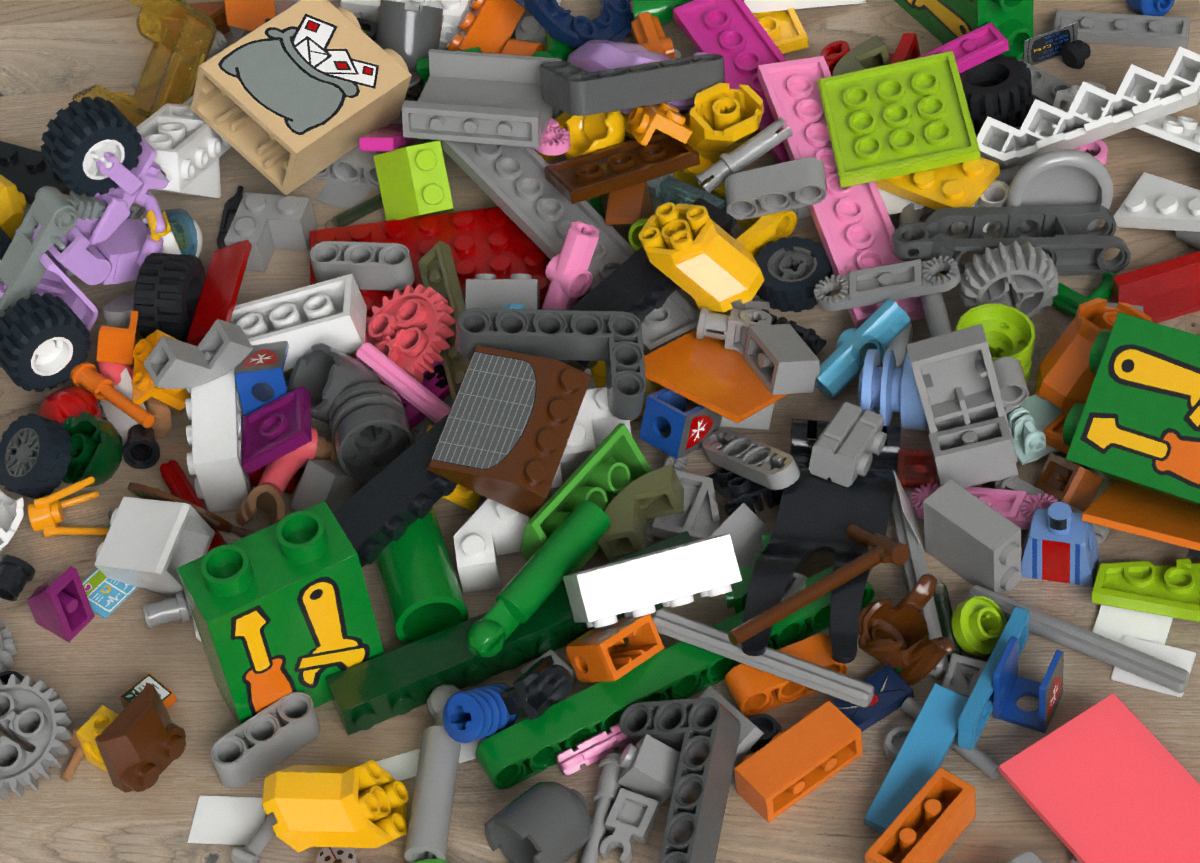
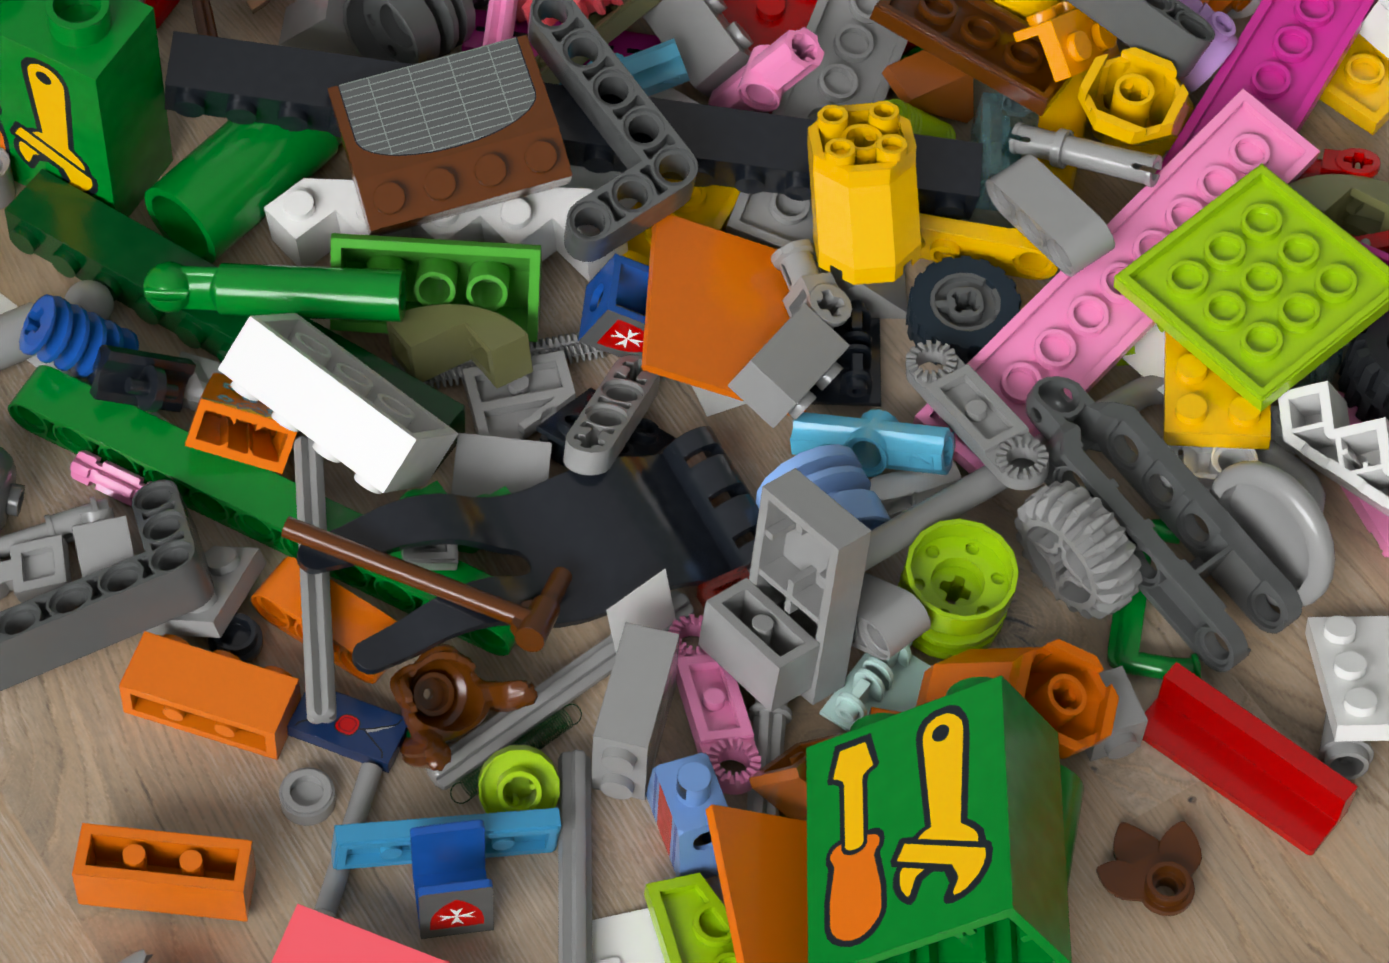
camera: 45 degrees right, 10 degrees up
(847, 445) = (679, 501): light grey brick -> none
(918, 757) = (285, 816): dark azure tile -> none
(962, 674) = (439, 800): light grey tile -> none

